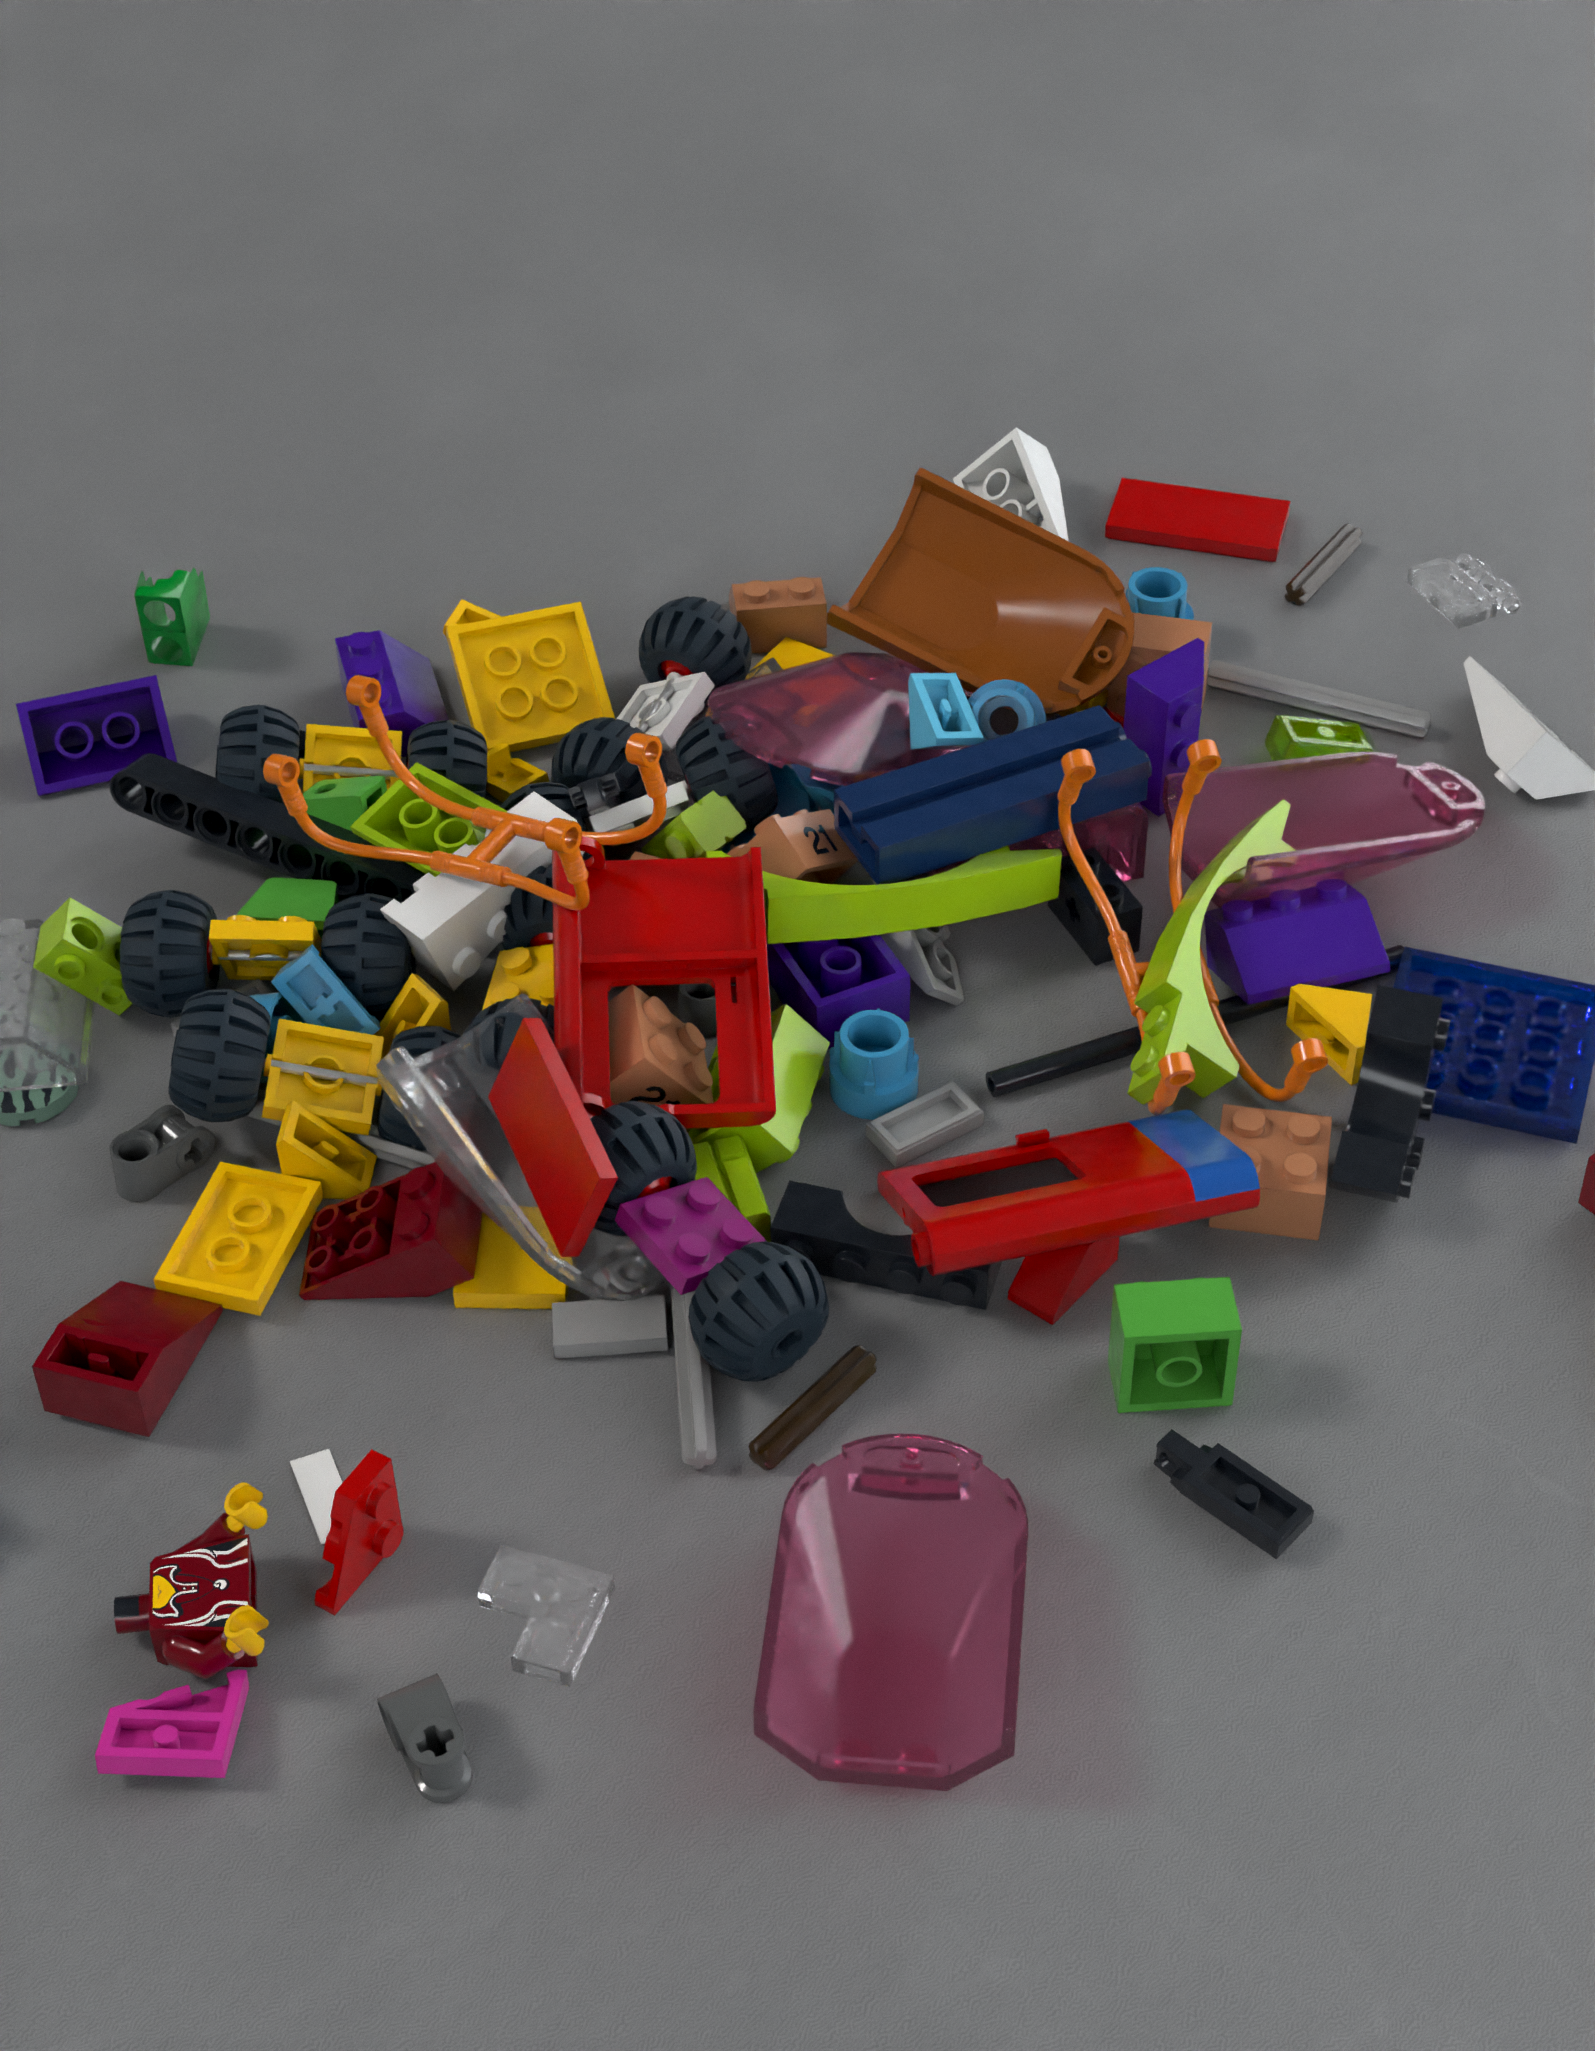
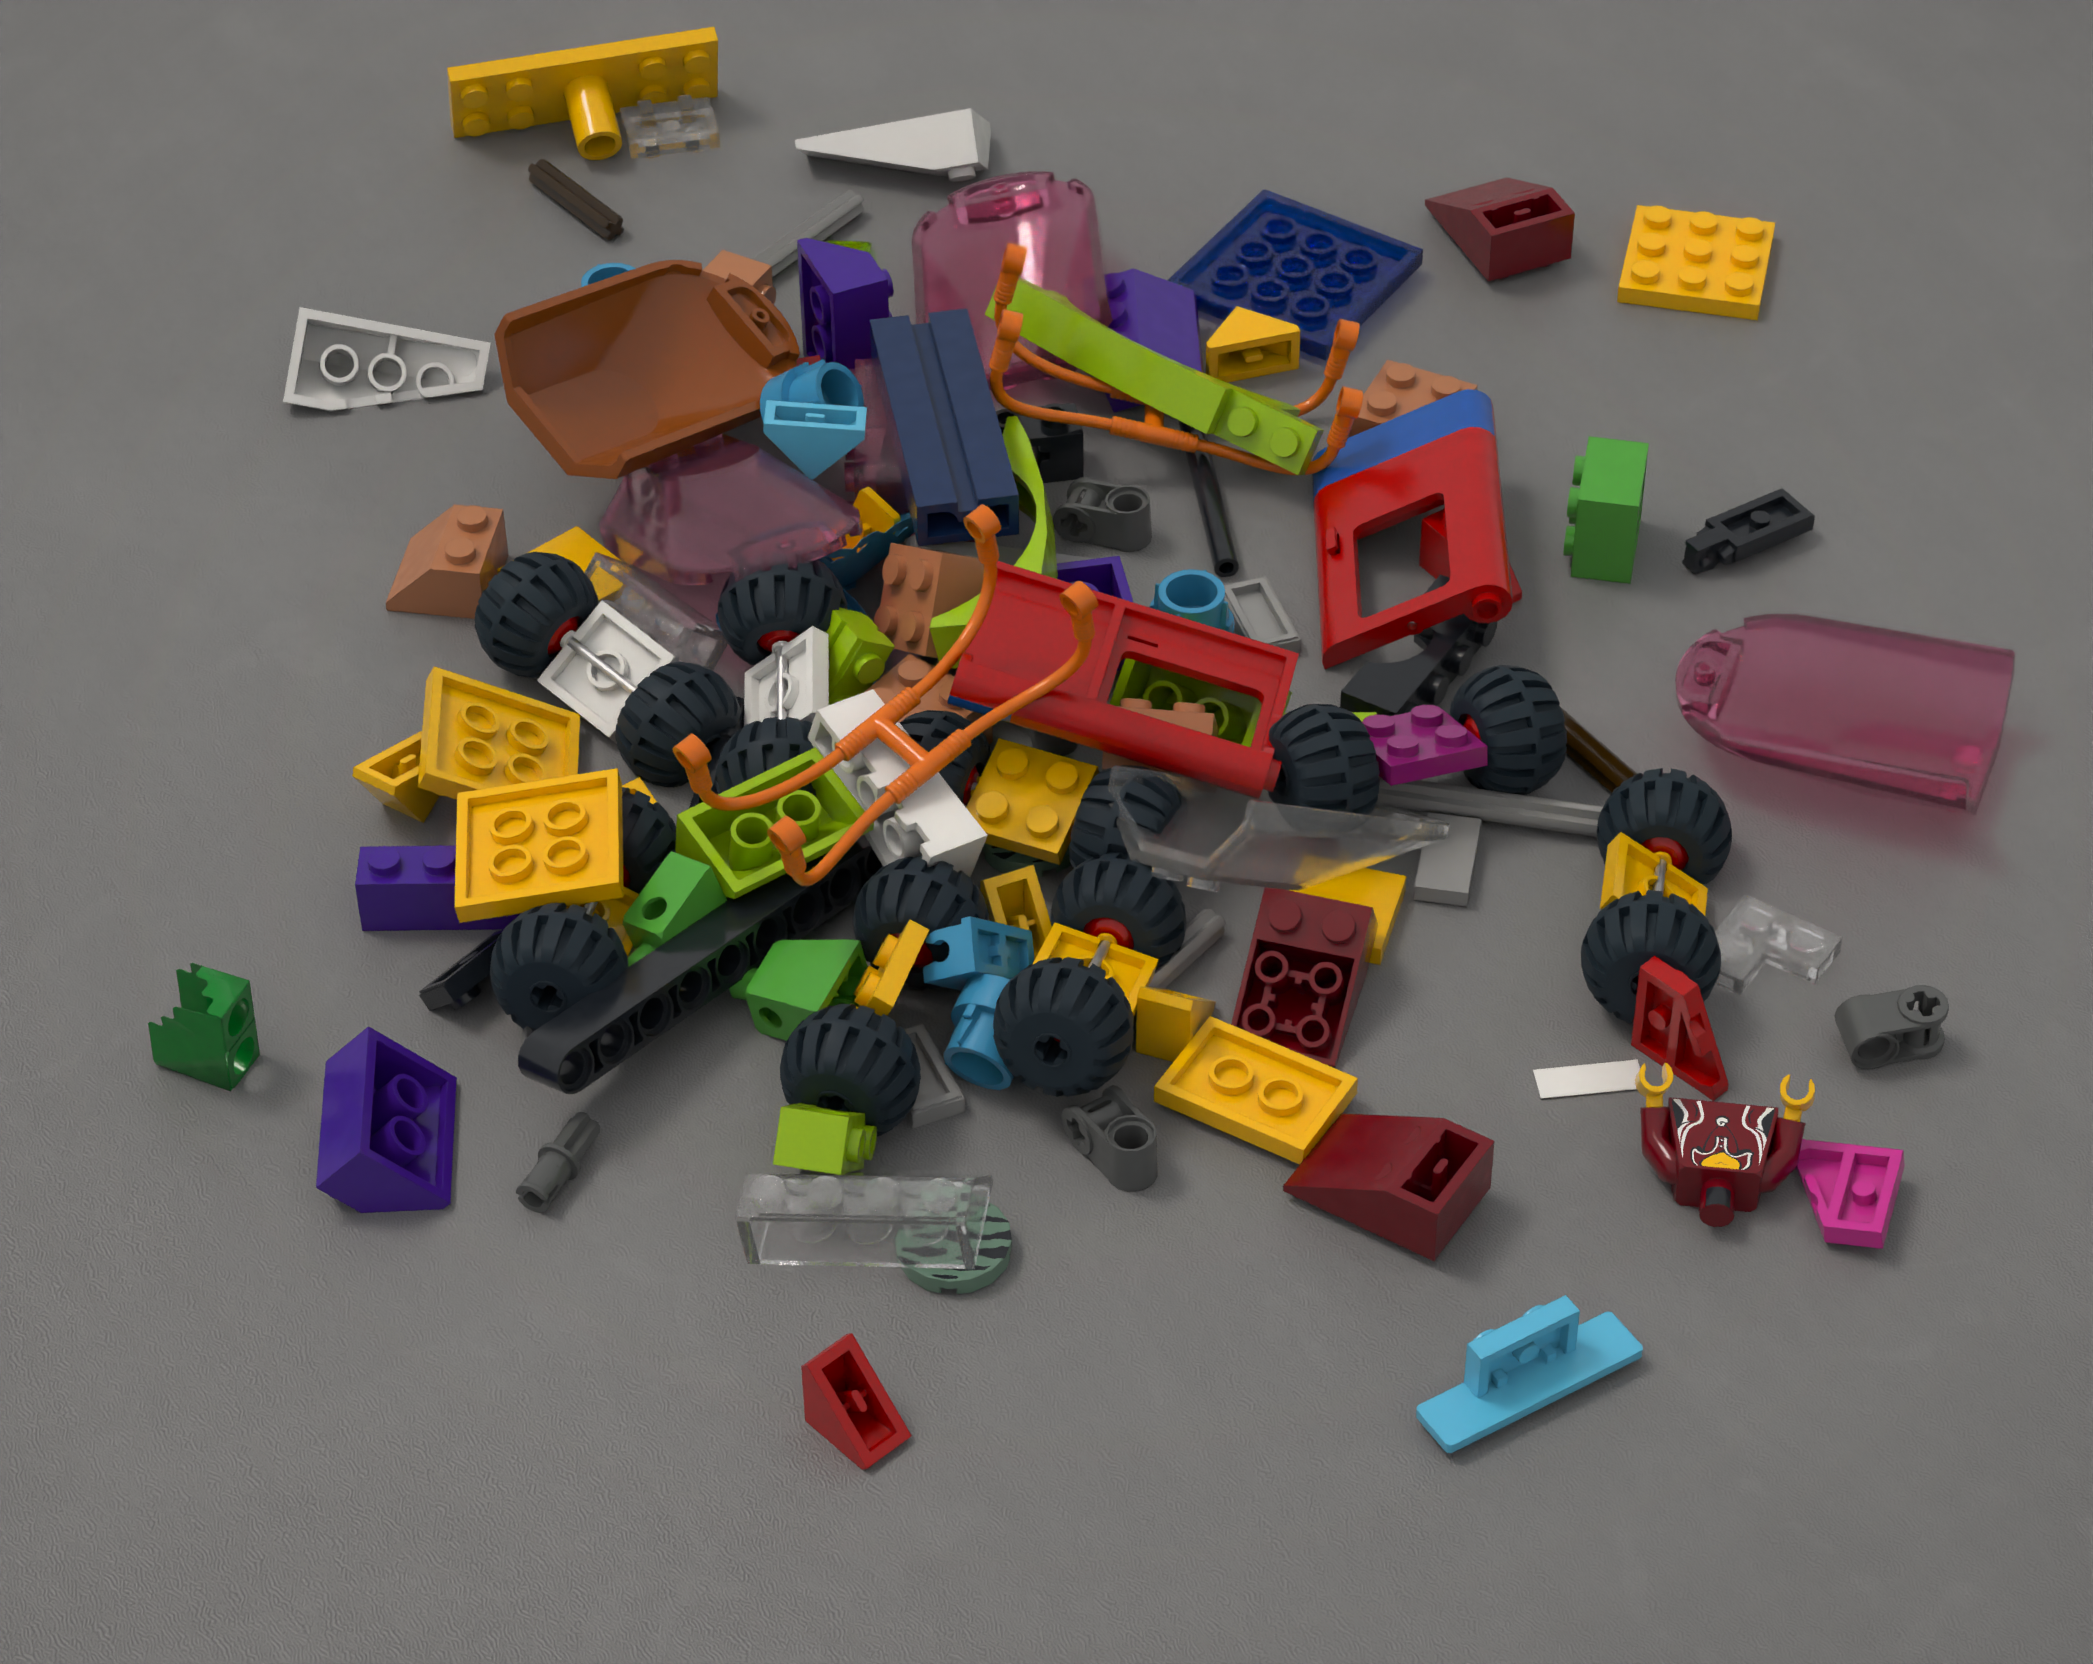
camera: 75 degrees left, 0 degrees up
(82, 836) = (557, 1163): none -> dark grey axle
(408, 699) = (539, 845): none -> yellow plate
(552, 1137) = (1316, 769): red tile -> none
(557, 1483) = (1658, 849): none -> black plate
(599, 793) = (775, 694): black hinge -> none
(1021, 983) = (1110, 512): none -> dark grey piece
(1198, 519) = (450, 260): red tile -> none
(1380, 1141) = (1344, 286): black brick -> none
(1461, 514) = (583, 86): none -> yellow plate

